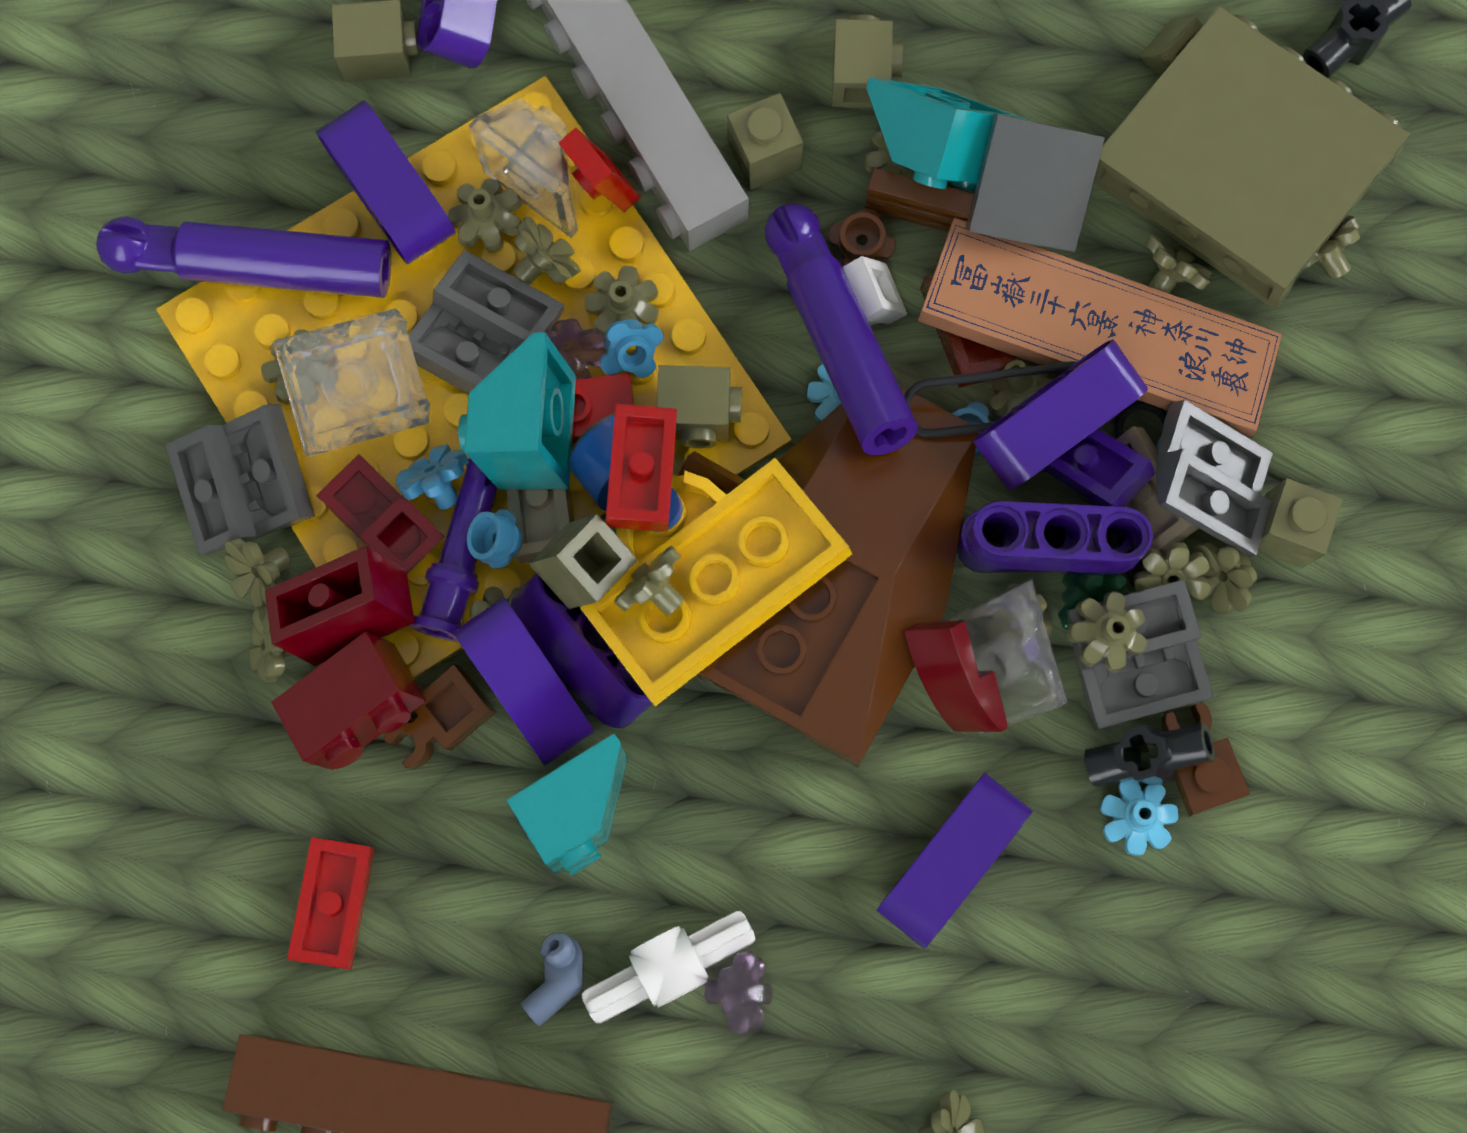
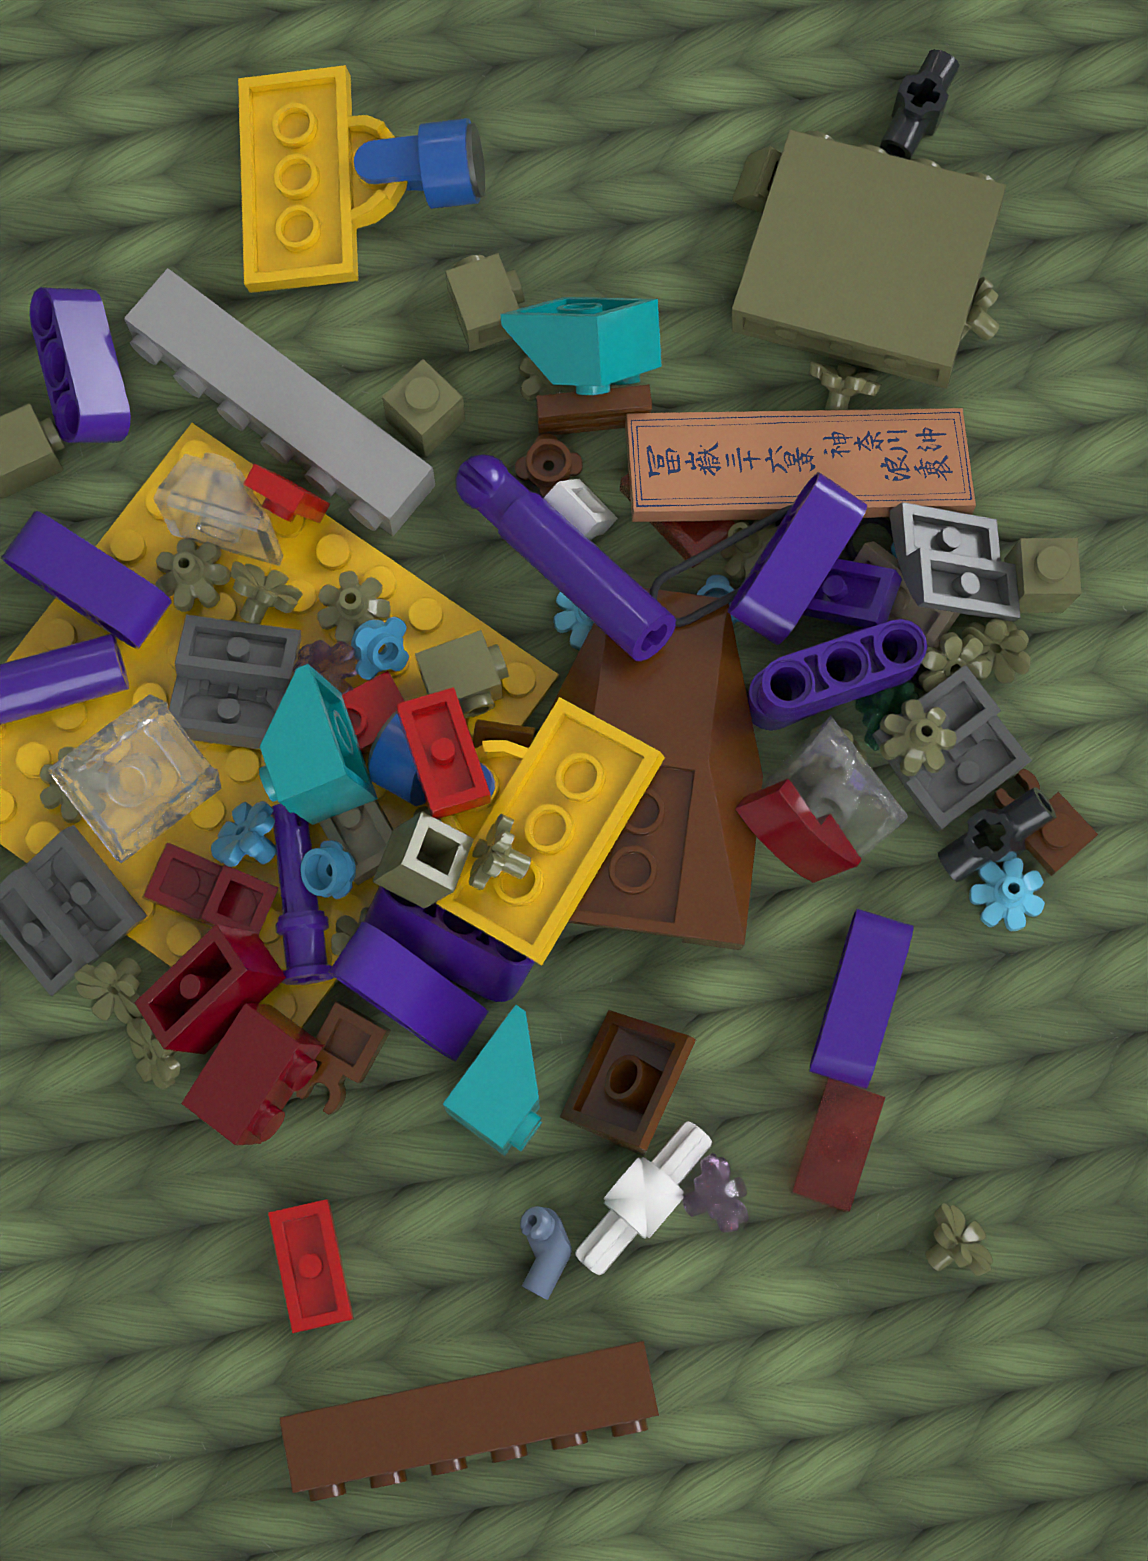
camera: 25 degrees left, 0 degrees up
(699, 850) = (627, 1080): none -> reddish brown slope
(876, 992) = (838, 1145): none -> clear red plate
(1034, 183) = (688, 355): dark grey slope -> none

